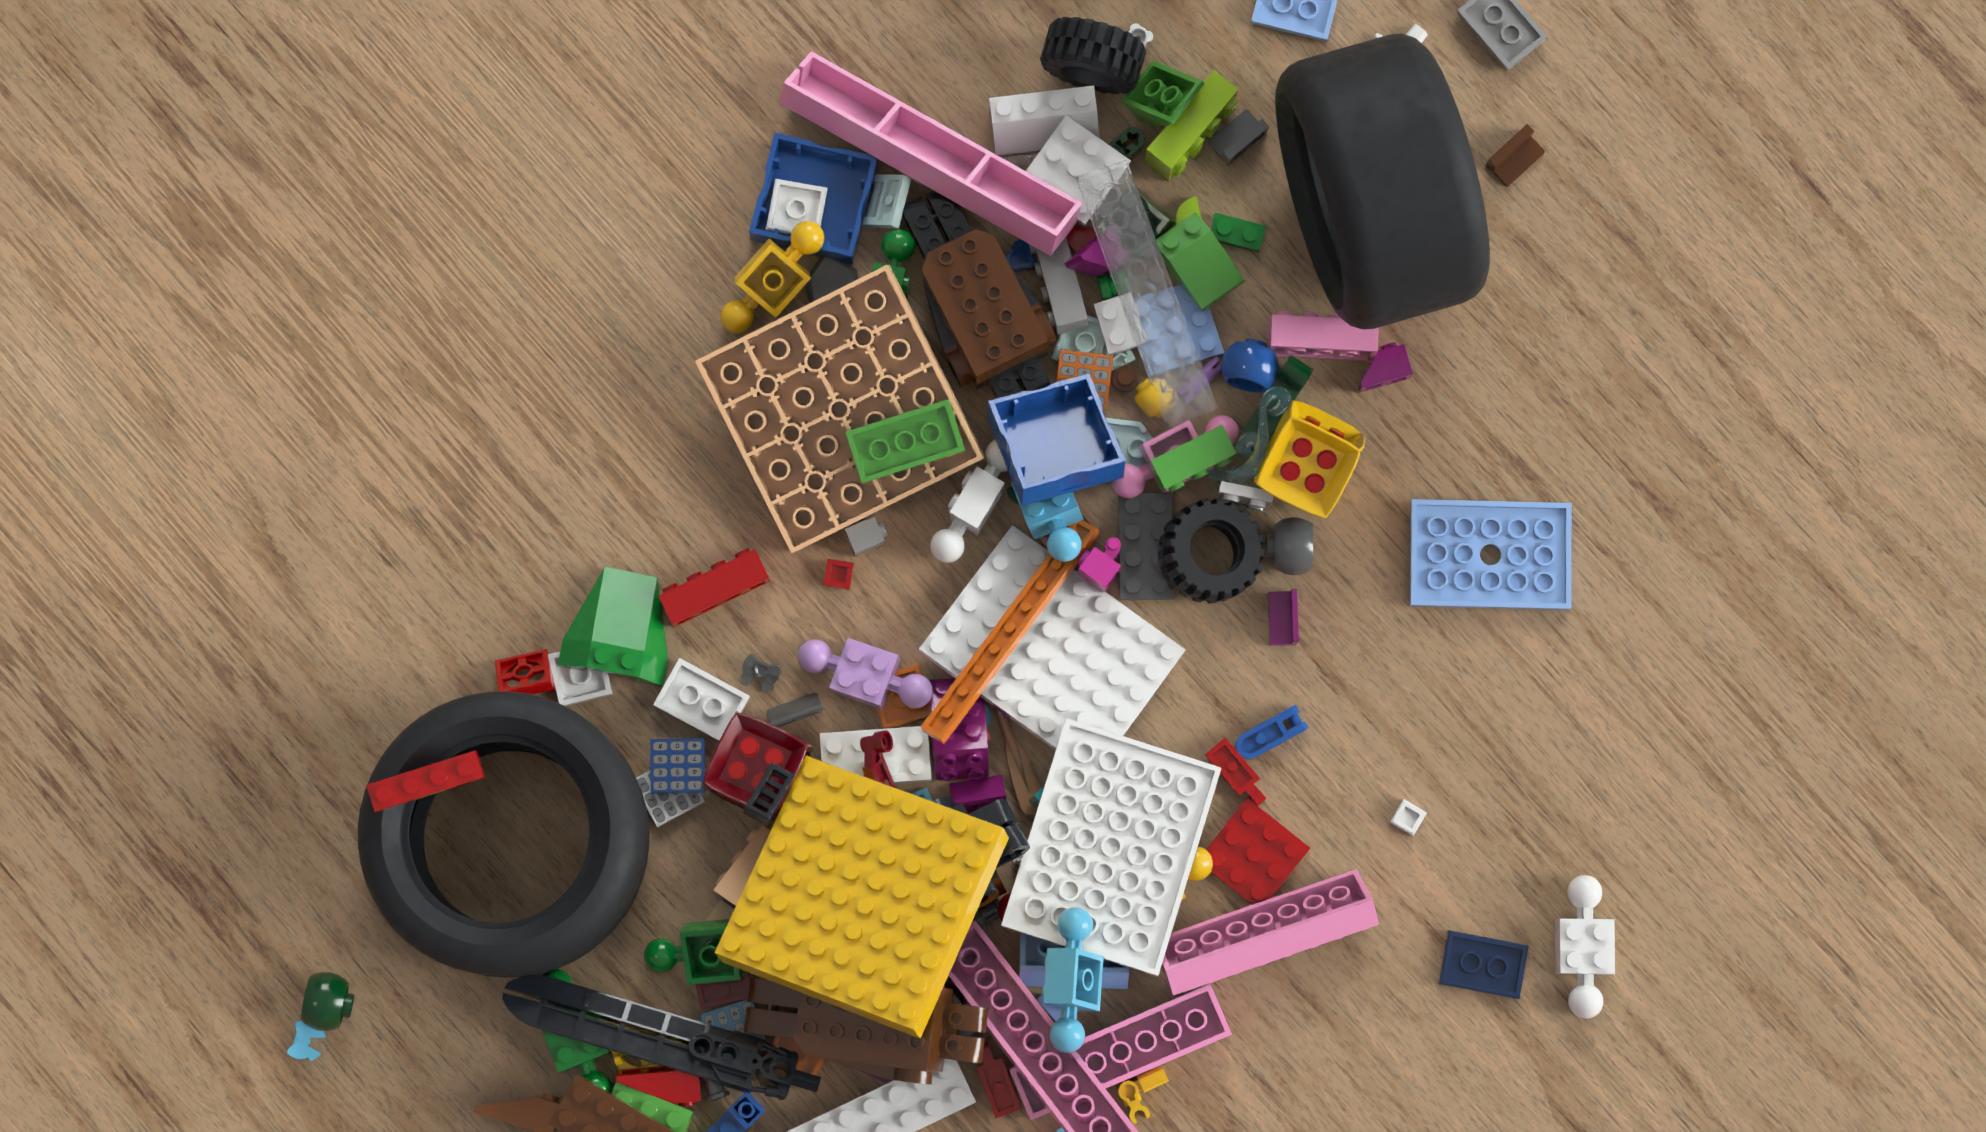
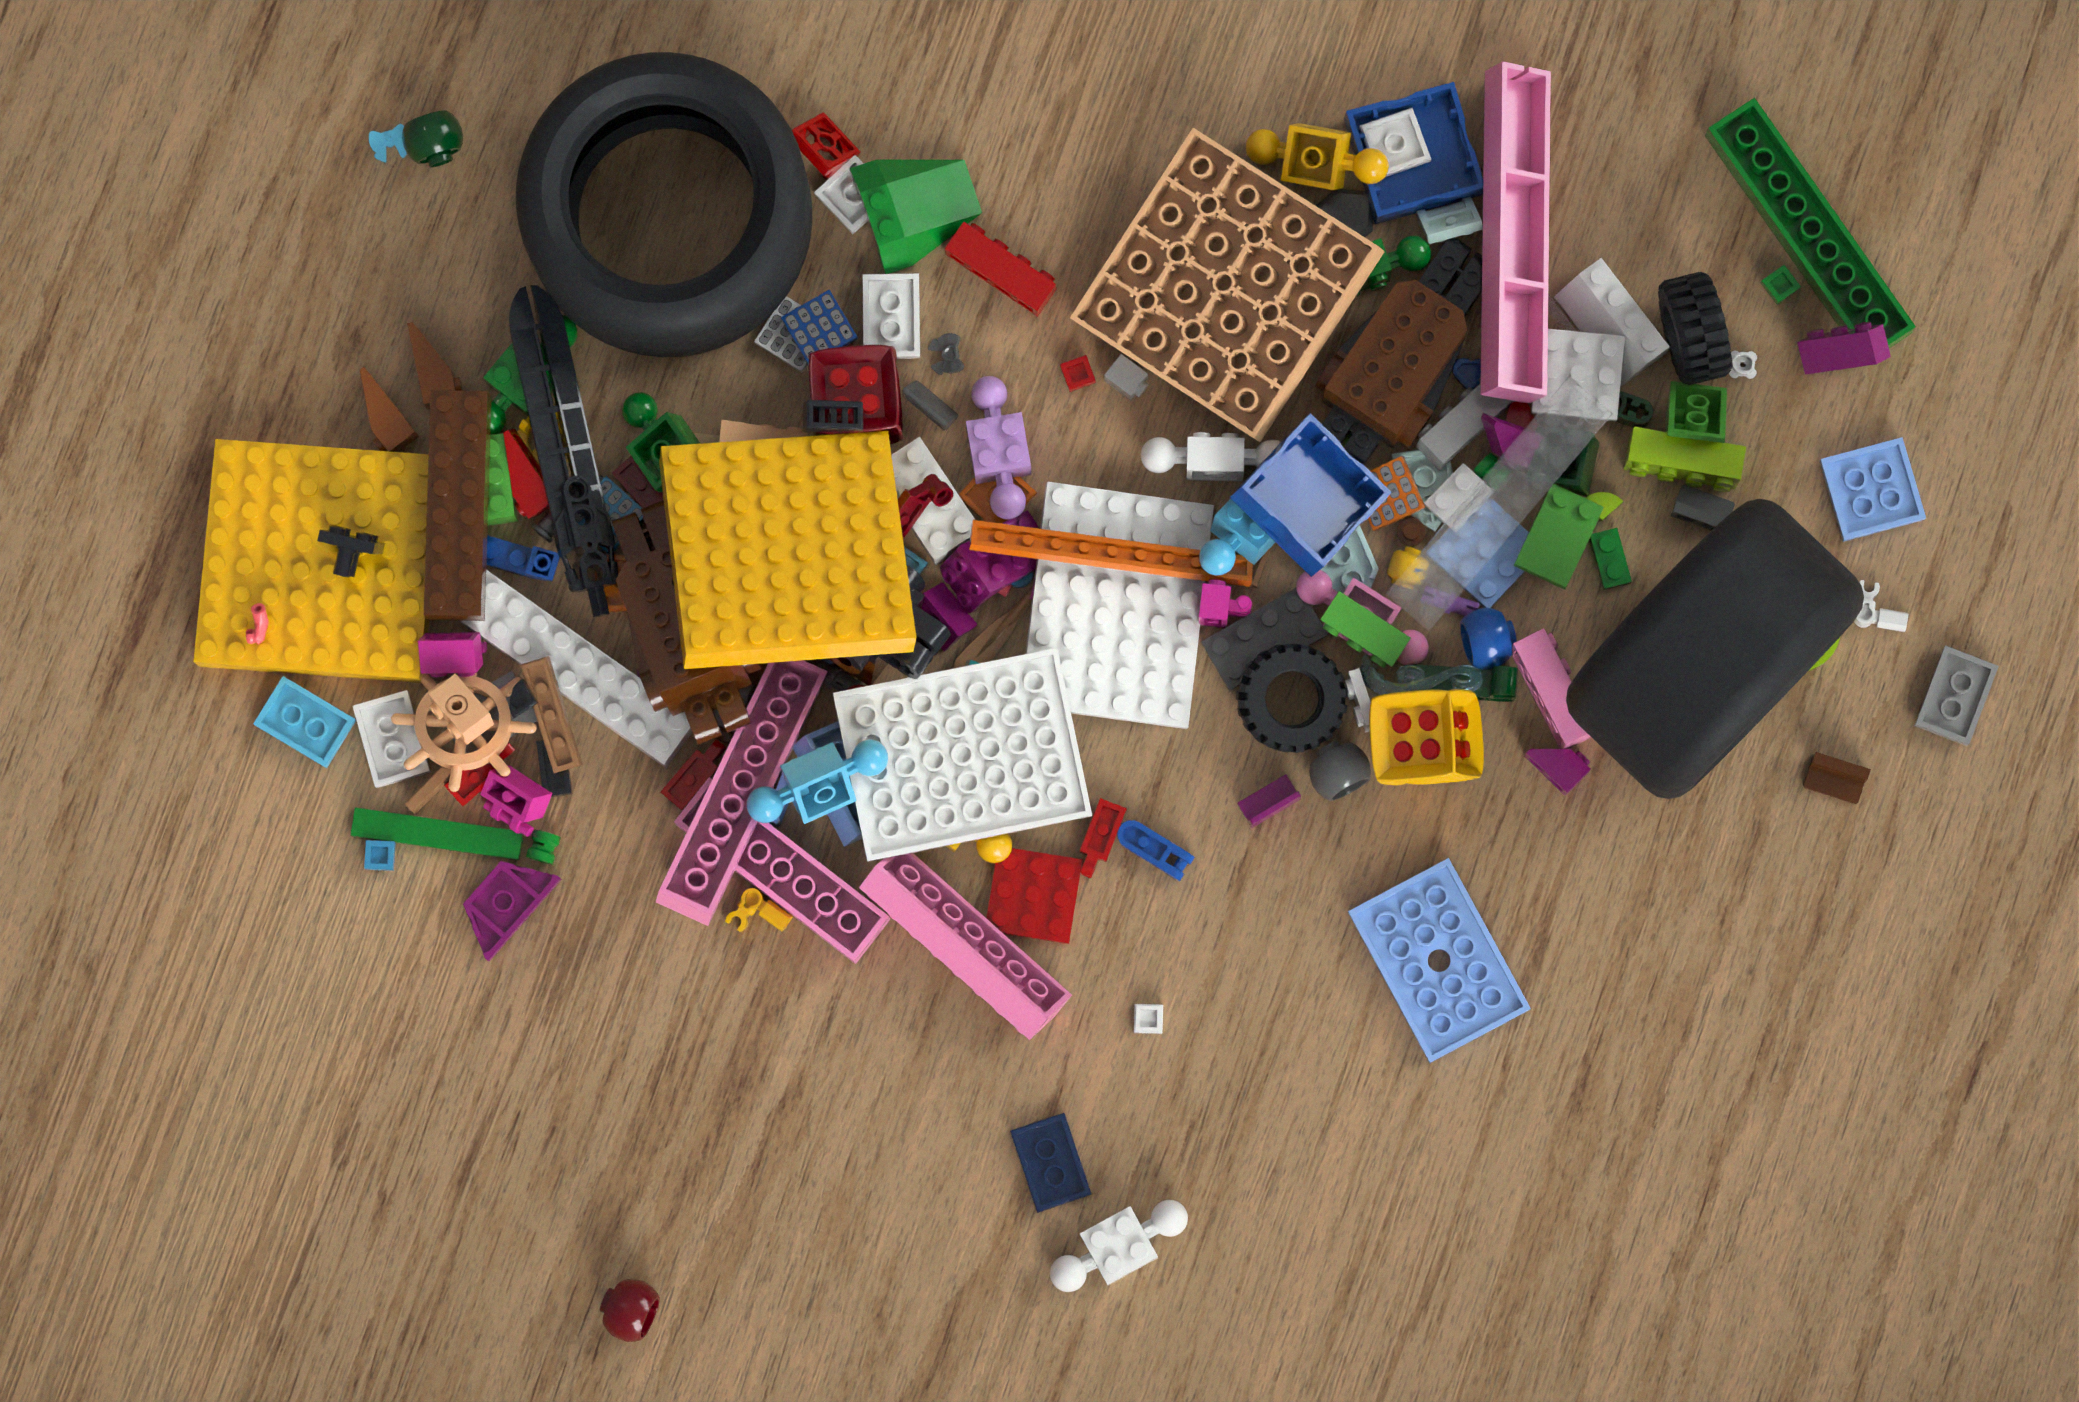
camera: 70 degrees right, 0 degrees up
(425, 781) = (666, 100): red brick -> none
(905, 441) = (1227, 357): bright green plate -> none

